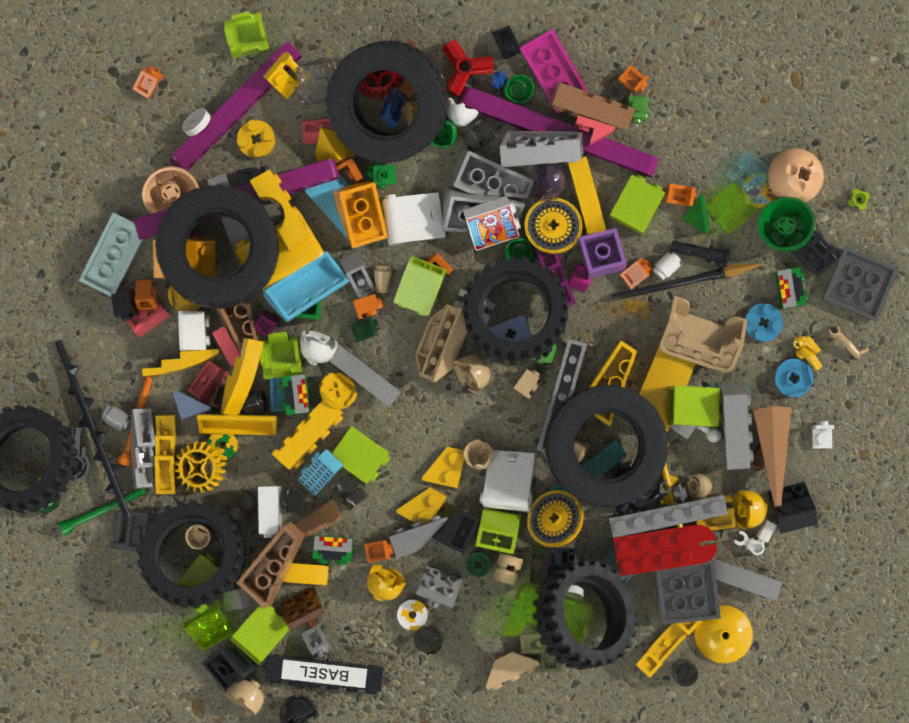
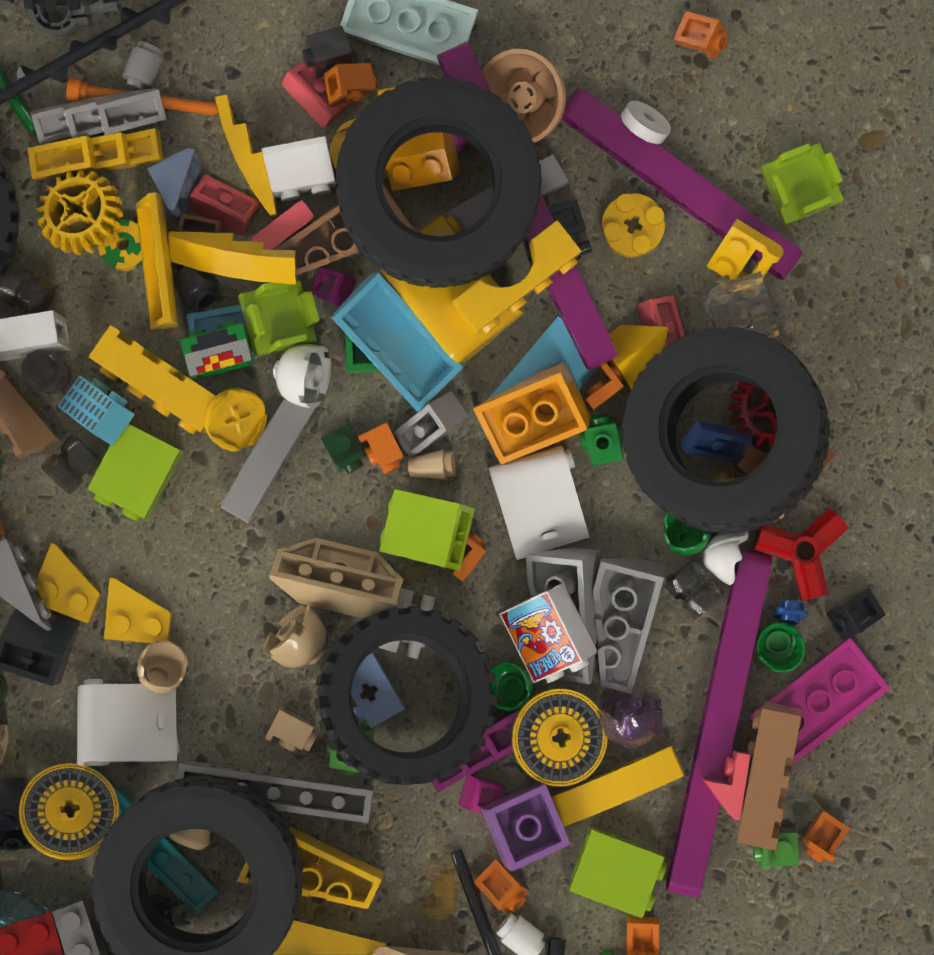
camera: 75 degrees right, 0 degrees up
(498, 530) = (39, 717): lime slope -> none
(540, 147) = (686, 698): light grey wedge -> none

